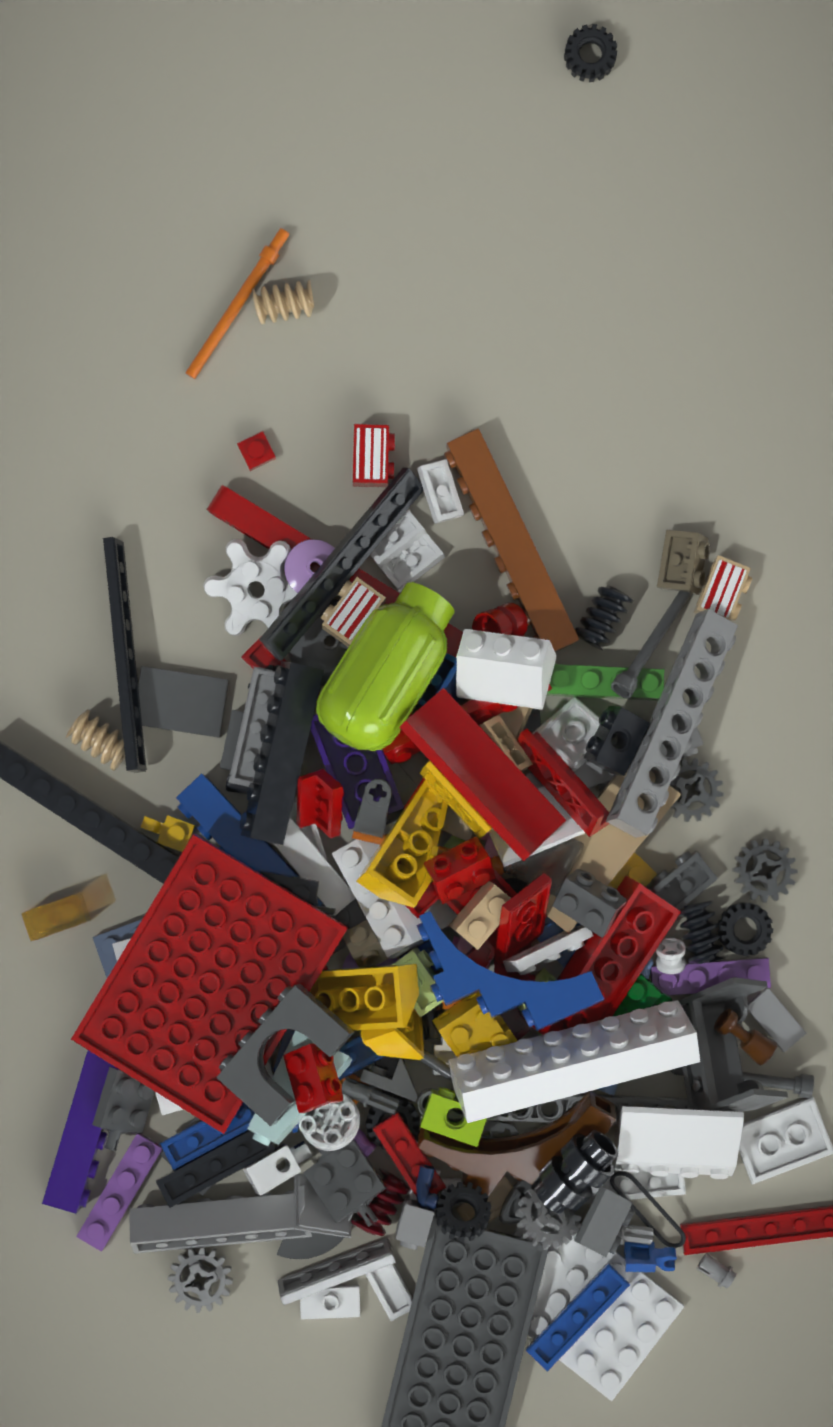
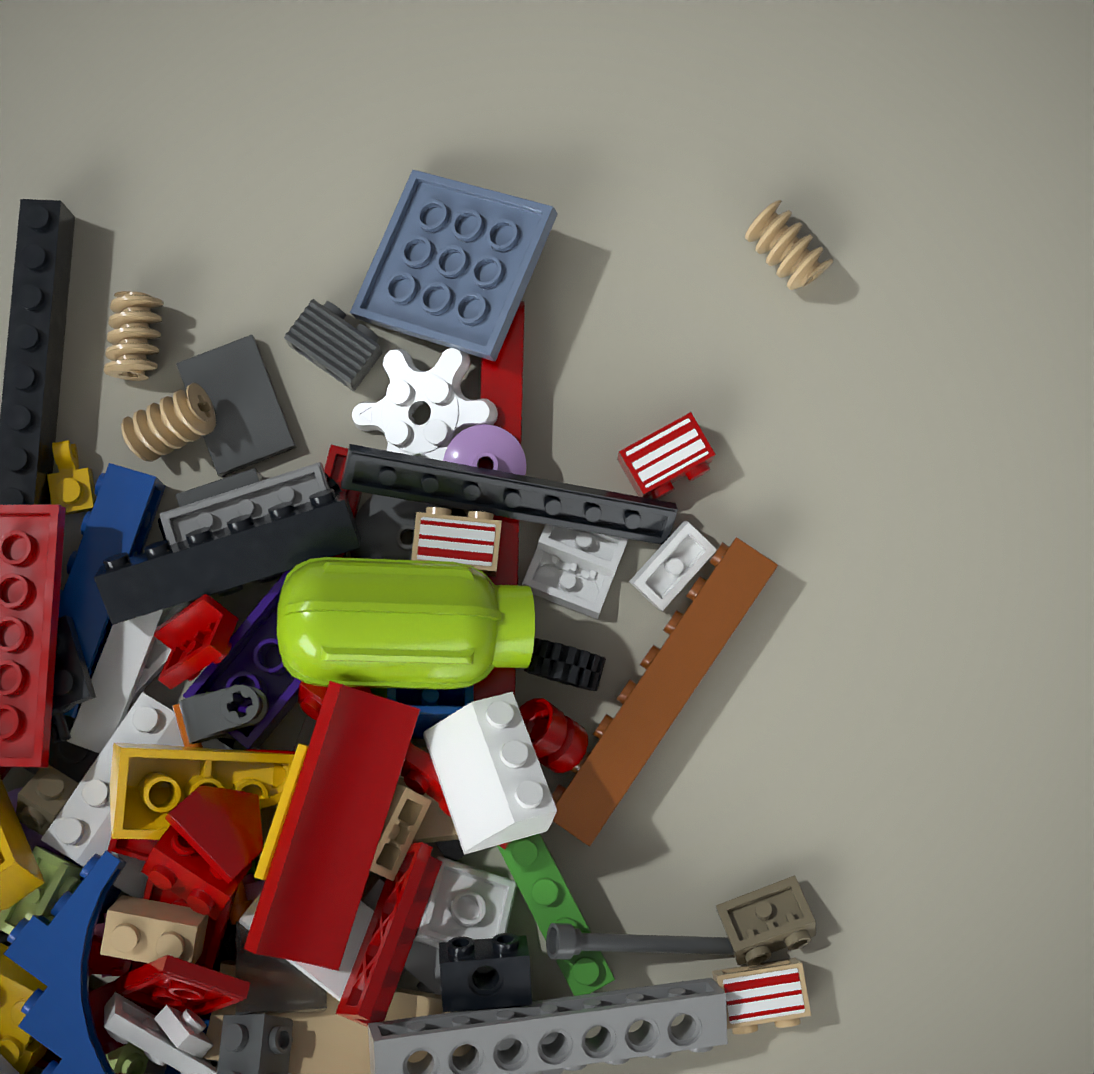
camera: 65 degrees right, 5 degrees down
(124, 655) = (249, 306): black tile -> none
(173, 514) = (454, 264): none -> sand blue plate
(174, 747) = (169, 423): none -> tan piece
(178, 618) = (334, 344): none -> dark grey brick
(256, 451) = (590, 320): red plate -> none
(267, 256) = (830, 200): orange bar -> none
(445, 840) = (221, 827): none -> red slope
(465, 589) = (566, 664): none -> black tyre
(547, 931) = (184, 1030): none -> white plate
(602, 616) = (638, 859): black piece -> none

